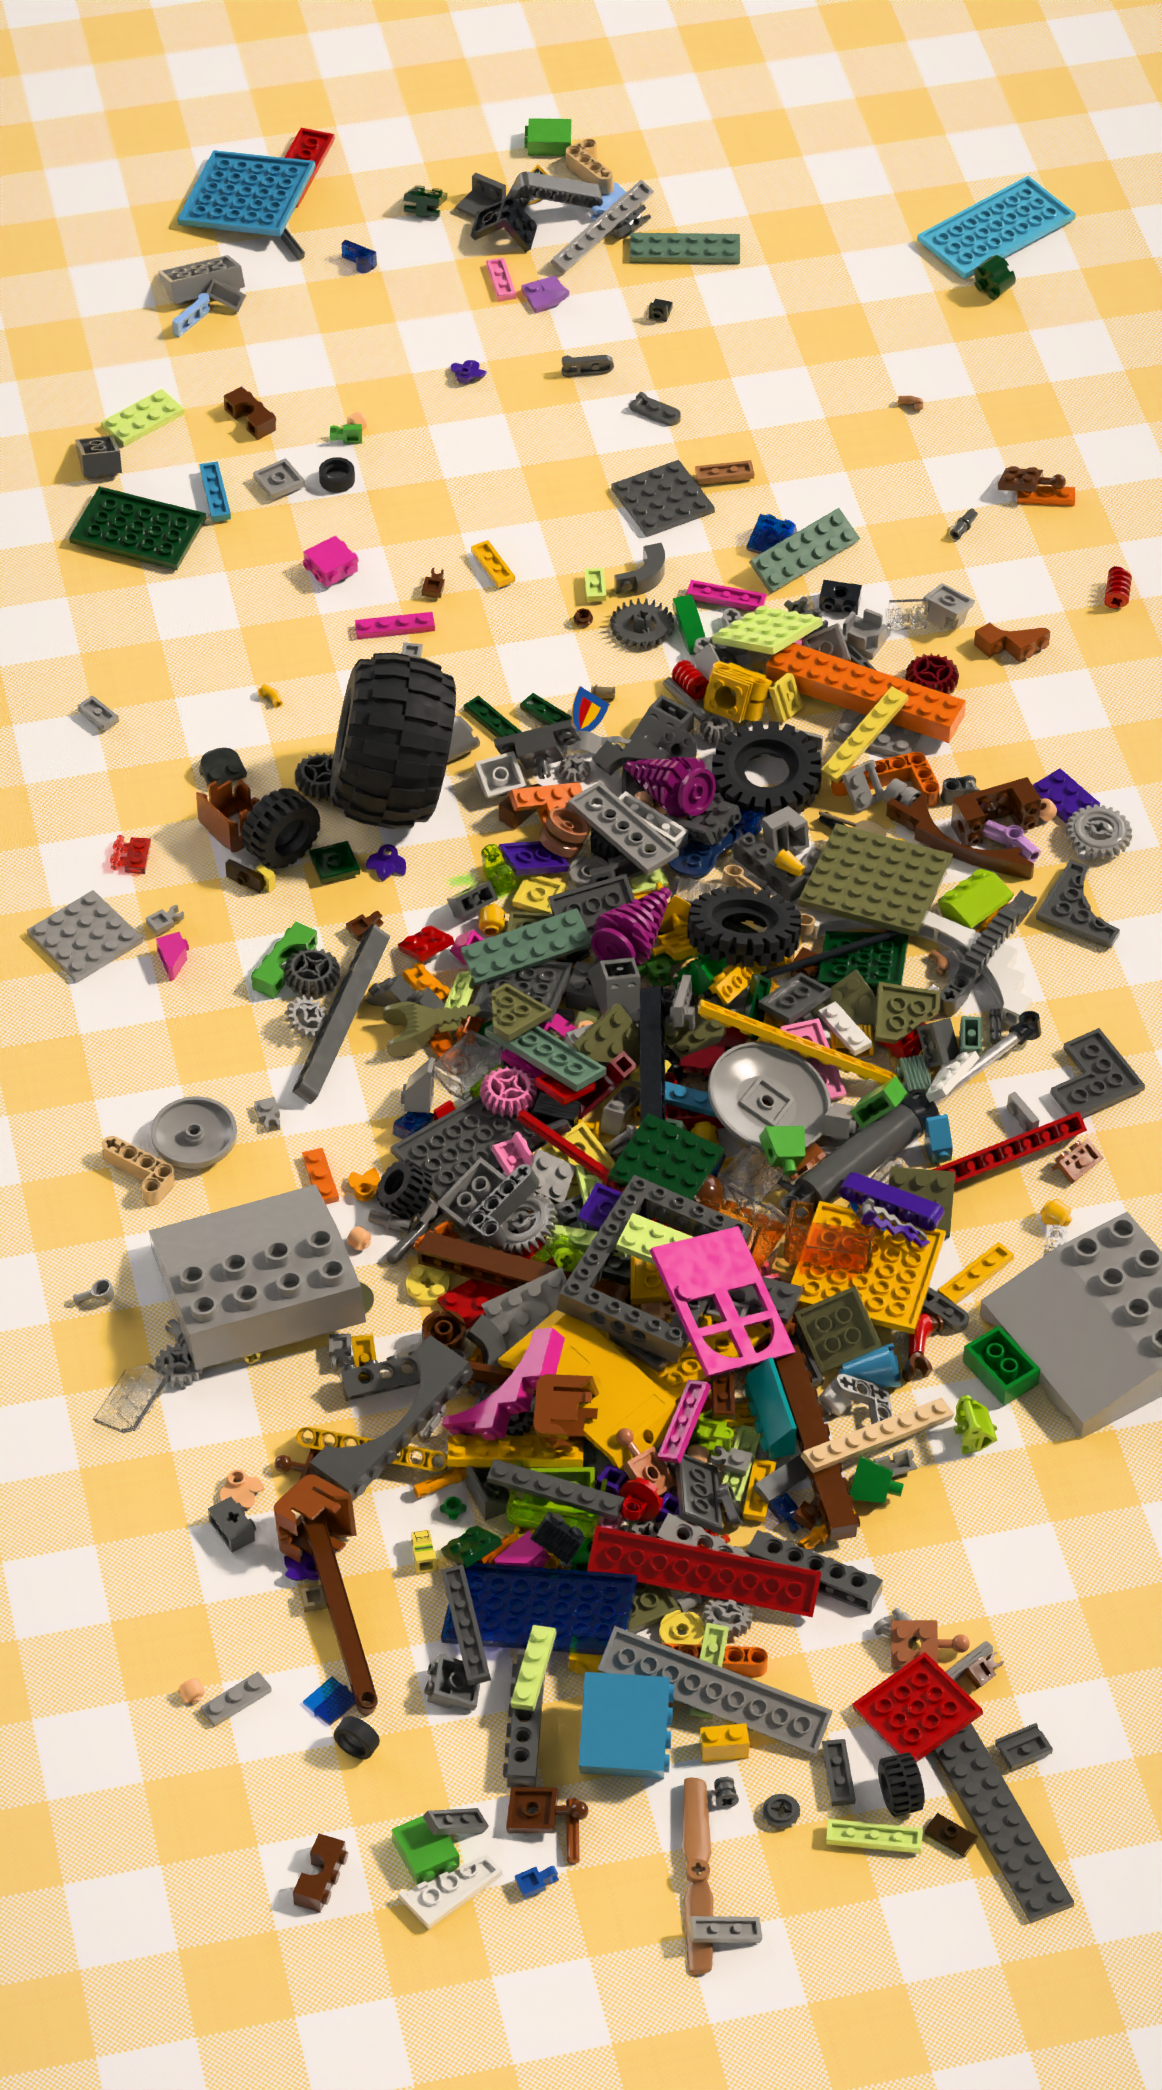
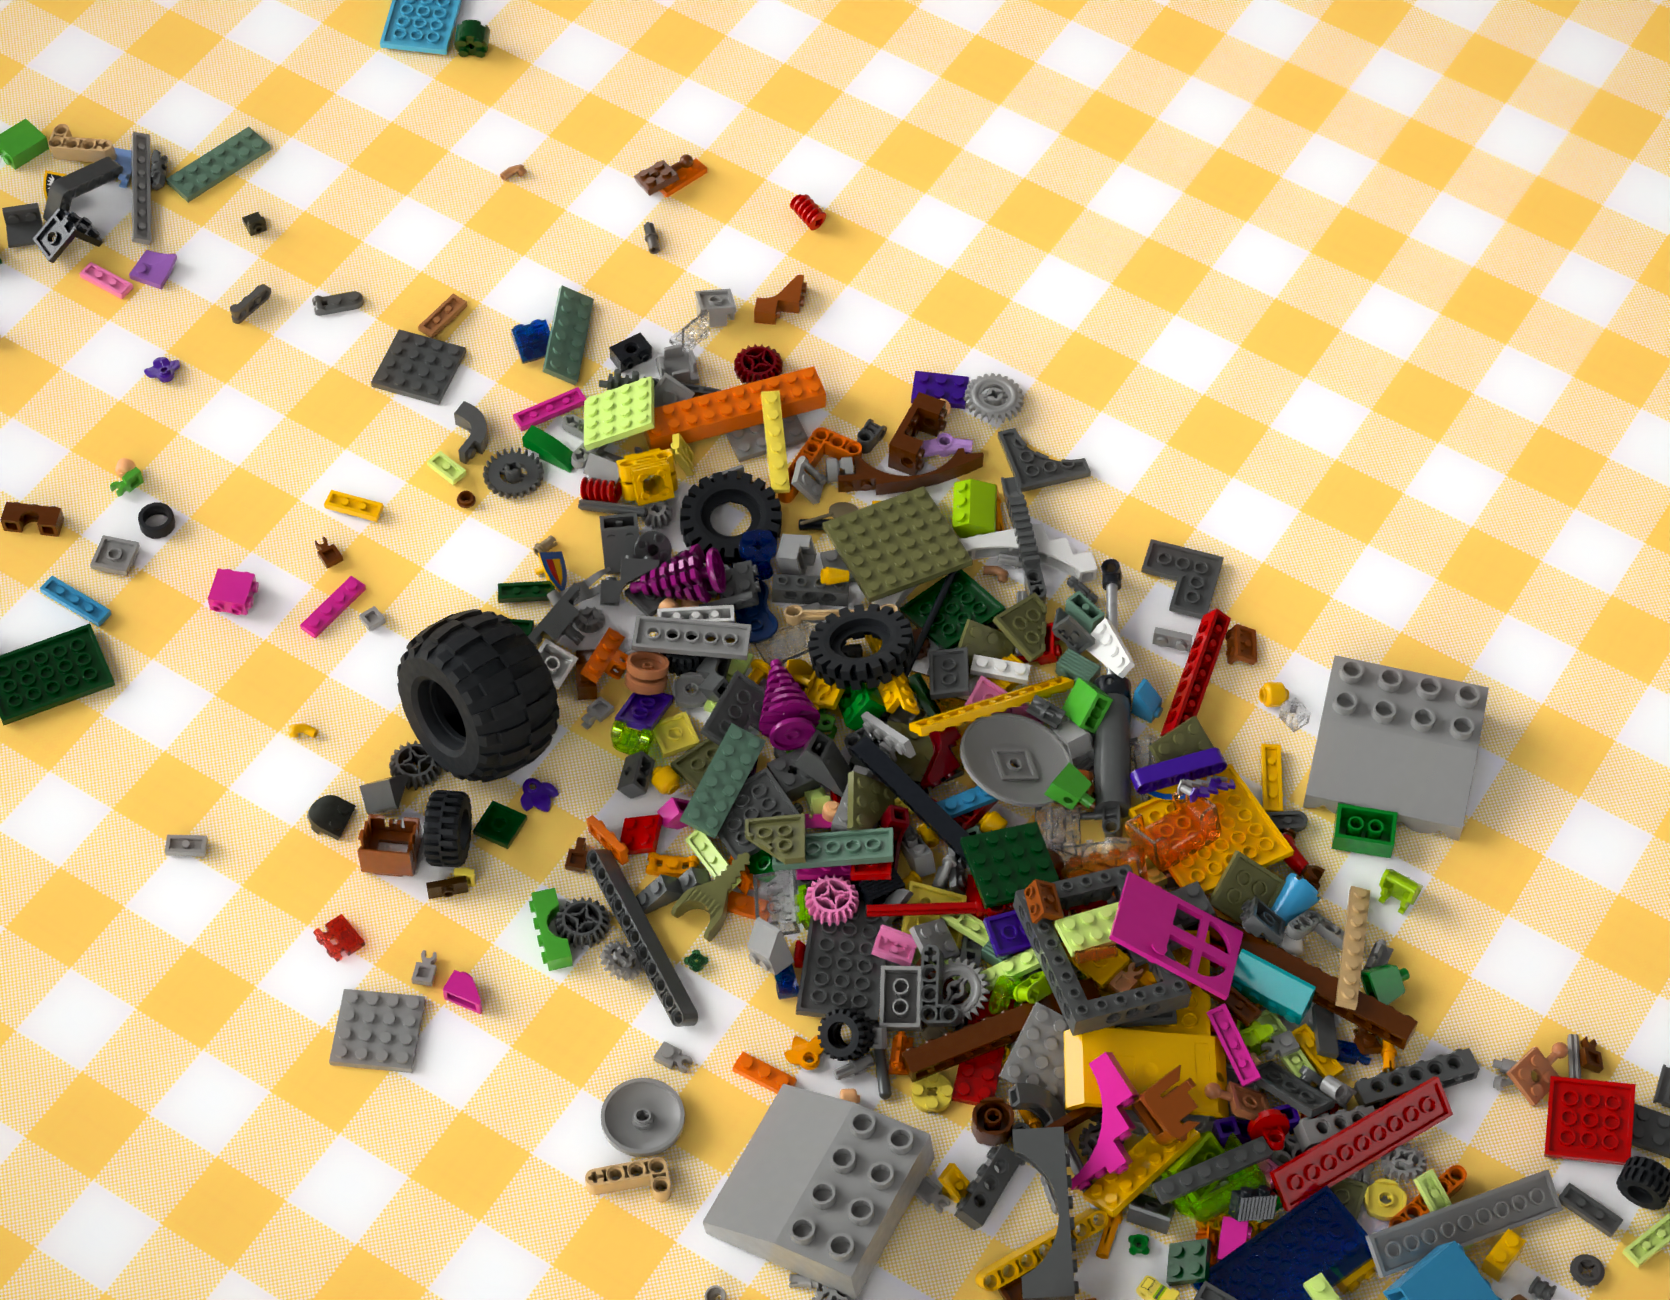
camera: 45 degrees left, 5 degrees up
(272, 776) = (383, 794): none -> dark grey slope
(364, 1062) = (696, 966): none -> clear green plate
(397, 928) = (607, 839): none -> orange plate
(500, 835) = (599, 710): none -> light grey plate
(634, 1259) = (1096, 954): none -> clear orange pin
(641, 1193) = (1043, 901): none -> dark orange bracket
(737, 1527) = (1337, 1090): none -> light grey piece
(757, 792) = (758, 537): none -> clear blue plate
(822, 1355) = (1259, 919): none -> dark grey plate
(841, 1084) = (1046, 711): none -> dark grey hips

